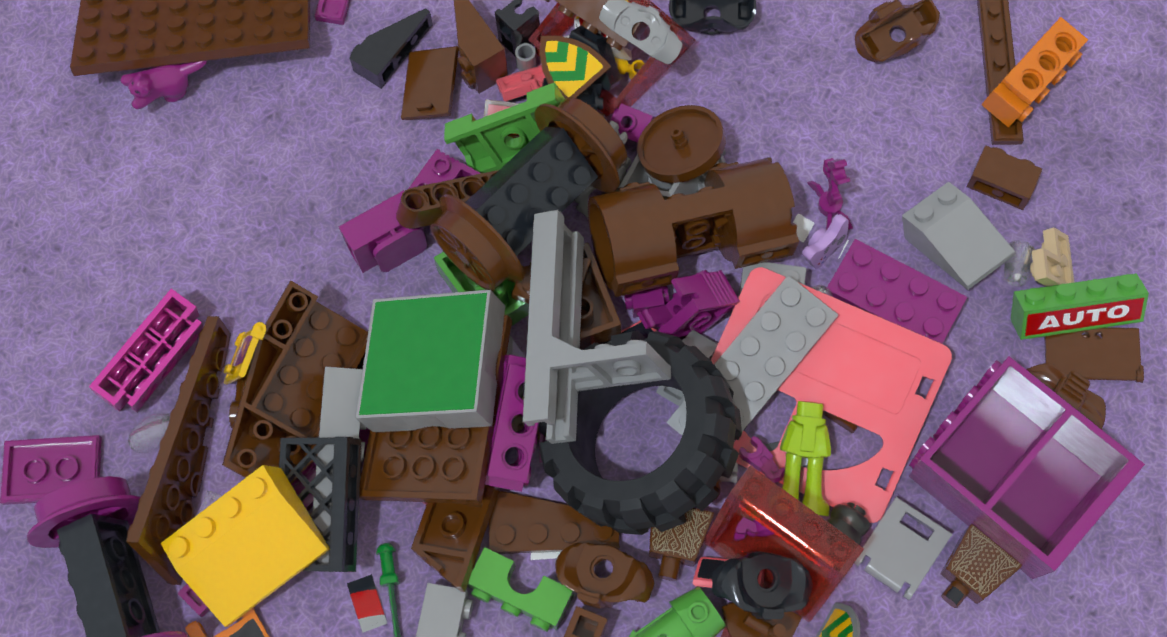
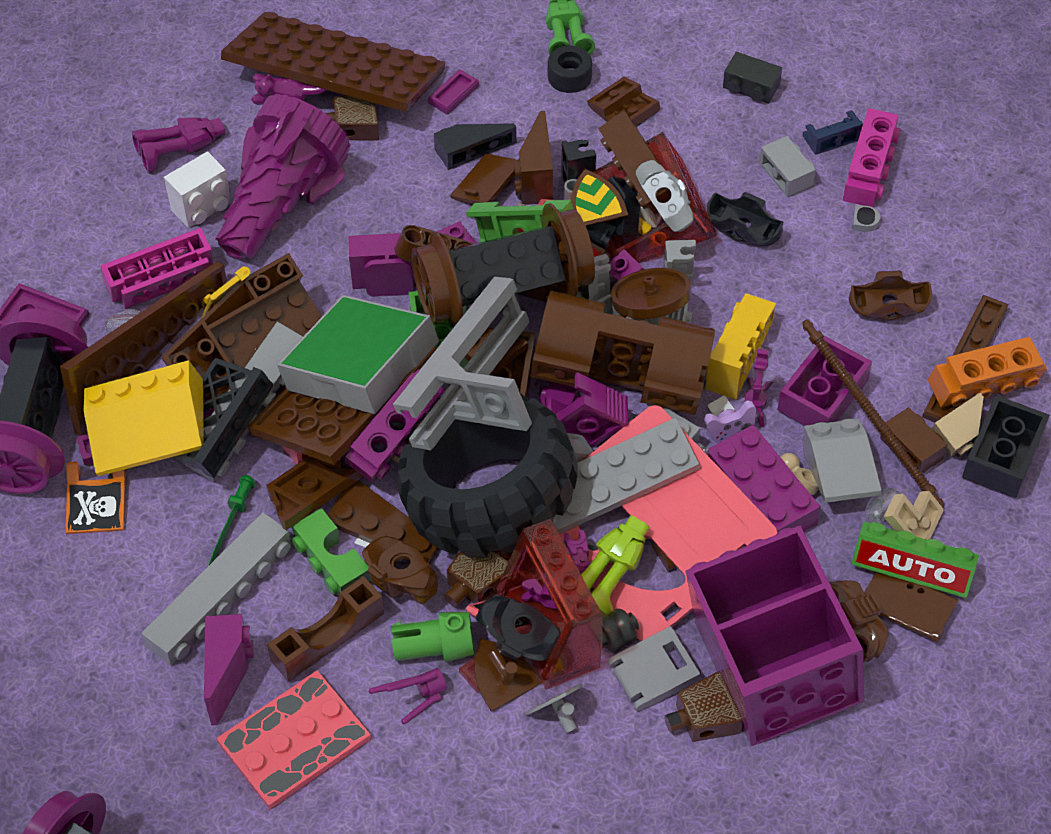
camera: 25 degrees right, 15 degrees down
(93, 175) = (189, 135): none -> magenta piece
(139, 241) = (198, 190): none -> white brick
(216, 162) = (284, 155): none -> magenta cone
(251, 78) = (356, 118): none -> reddish brown torso
(367, 603) = (210, 514): sticker -> none
(679, 87) = (680, 256): none -> light grey hinge
(785, 144) = (738, 345): none -> yellow wedge
(874, 119) = (816, 338): none -> reddish brown hose
(893, 159) = (817, 392): none -> magenta brick
(922, 264) = (804, 475): none -> tan plate
(1042, 139) = (961, 426): none -> tan slope
(1093, 142) = (1005, 446): none -> black brick

